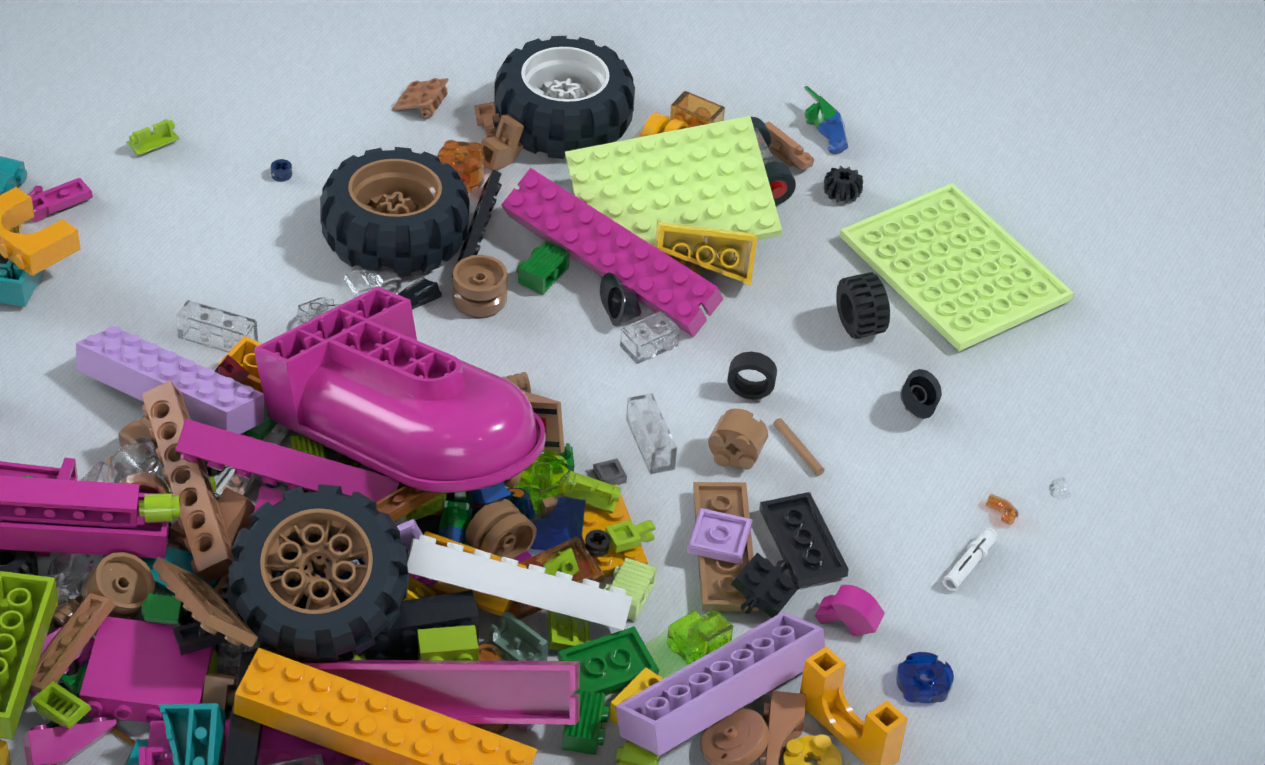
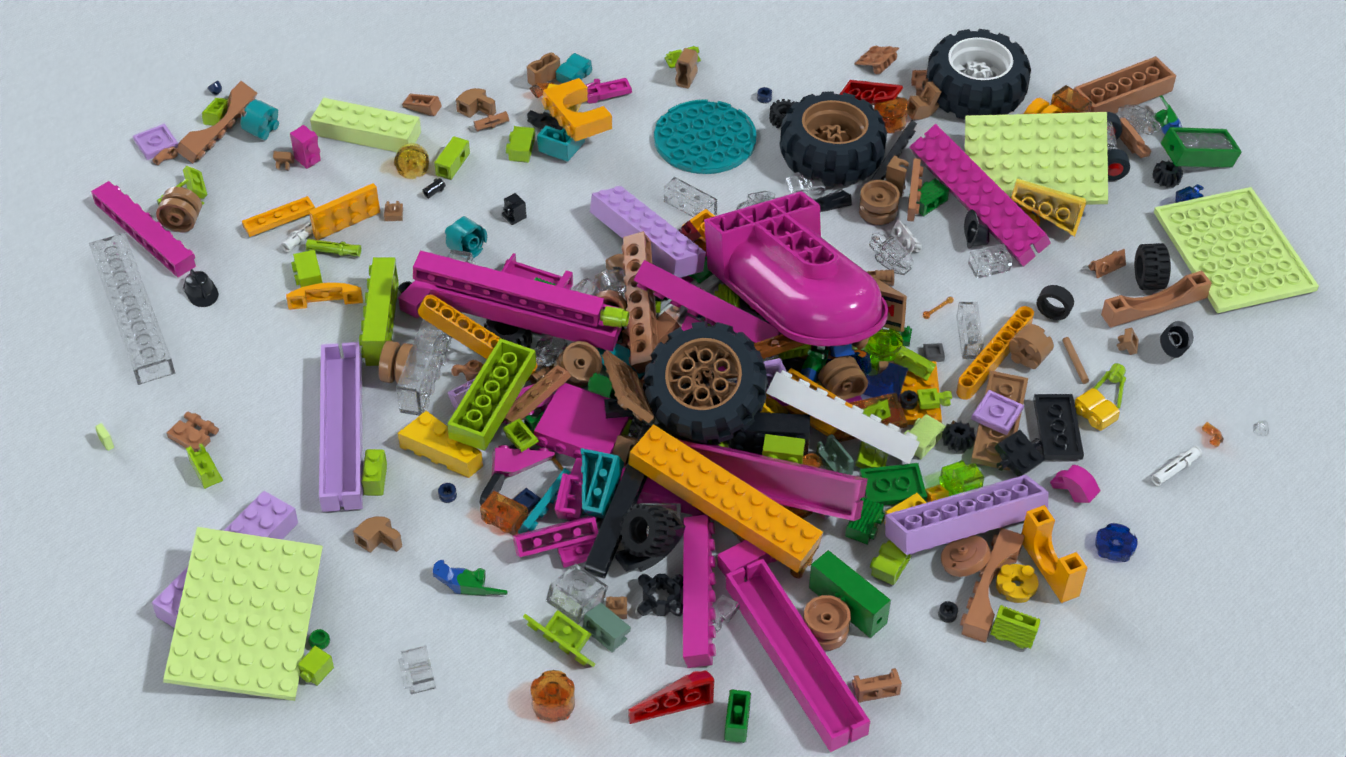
camera: 20 degrees right, 5 degrees up
(163, 150) = (686, 68): none -> medium nougat brick
(212, 240) = (705, 137): none -> teal tile
(305, 189) = (777, 110): none -> black tyre
(432, 139) = (871, 91): none -> red wedge
(494, 242) = (897, 174): none -> medium nougat hinge
(515, 351) = (891, 254): none -> clear hinge
(524, 255) = (916, 184): none -> nougat plate
(527, 328) = (905, 237): none -> white hinge
(585, 424) = (926, 315): none -> clear orange hinge
(670, 663) = (936, 492): none -> light orange slope
(677, 579) = (958, 436): none -> black gear
(690, 460) = (992, 354): none -> light orange beam
(762, 80) = (1128, 86): none -> nougat brick
(788, 119) = (1140, 119): none -> clear hinge
(803, 312) = (1108, 263): none -> nougat hinge
(843, 368) = (1127, 309): none -> nougat arch
(847, 506) = (1096, 409): none -> yellow brick
(856, 457) = (1115, 375): none -> lime plant
(859, 409) = (1128, 341): none -> medium nougat tile
(876, 143) = (1201, 147): none -> green brick
(878, 204) = (1189, 193): none -> clear blue plate

